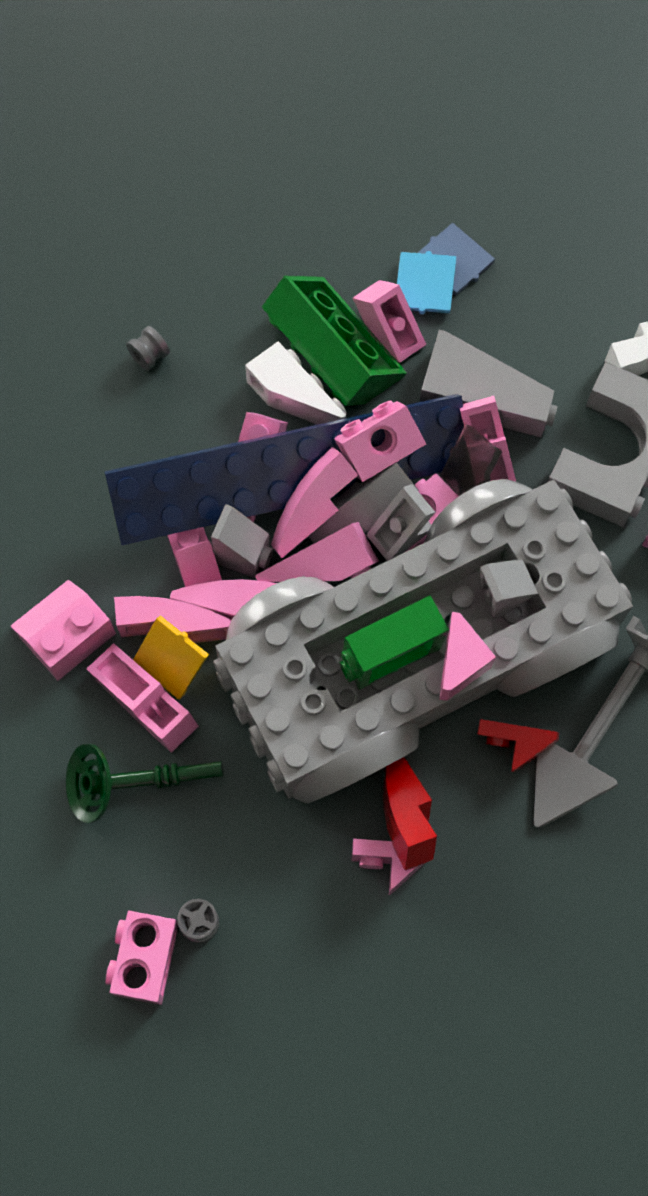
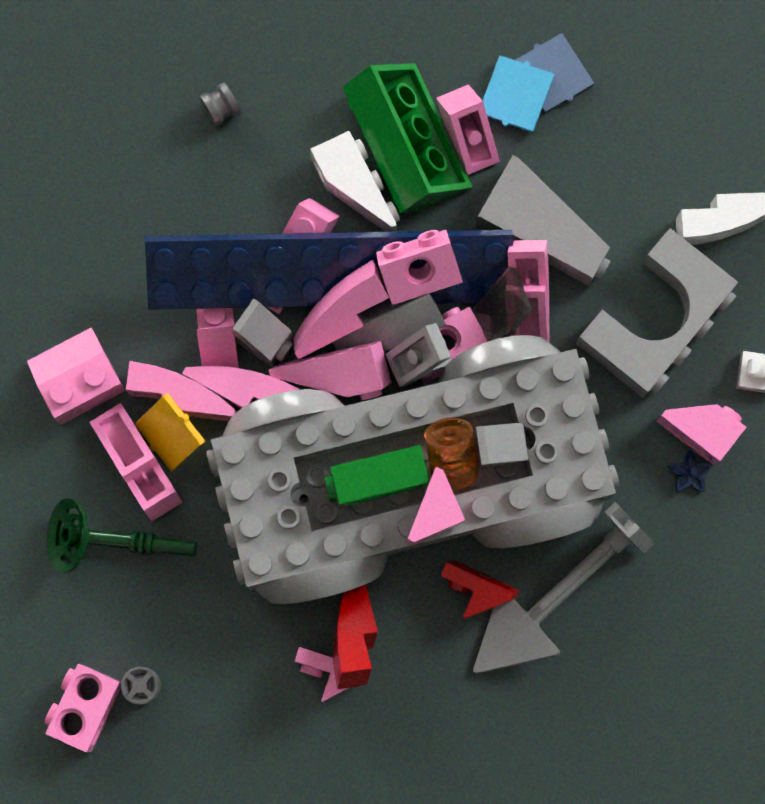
camera: 10 degrees right, 10 degrees up
(461, 593) = (452, 448): none -> clear orange wheel

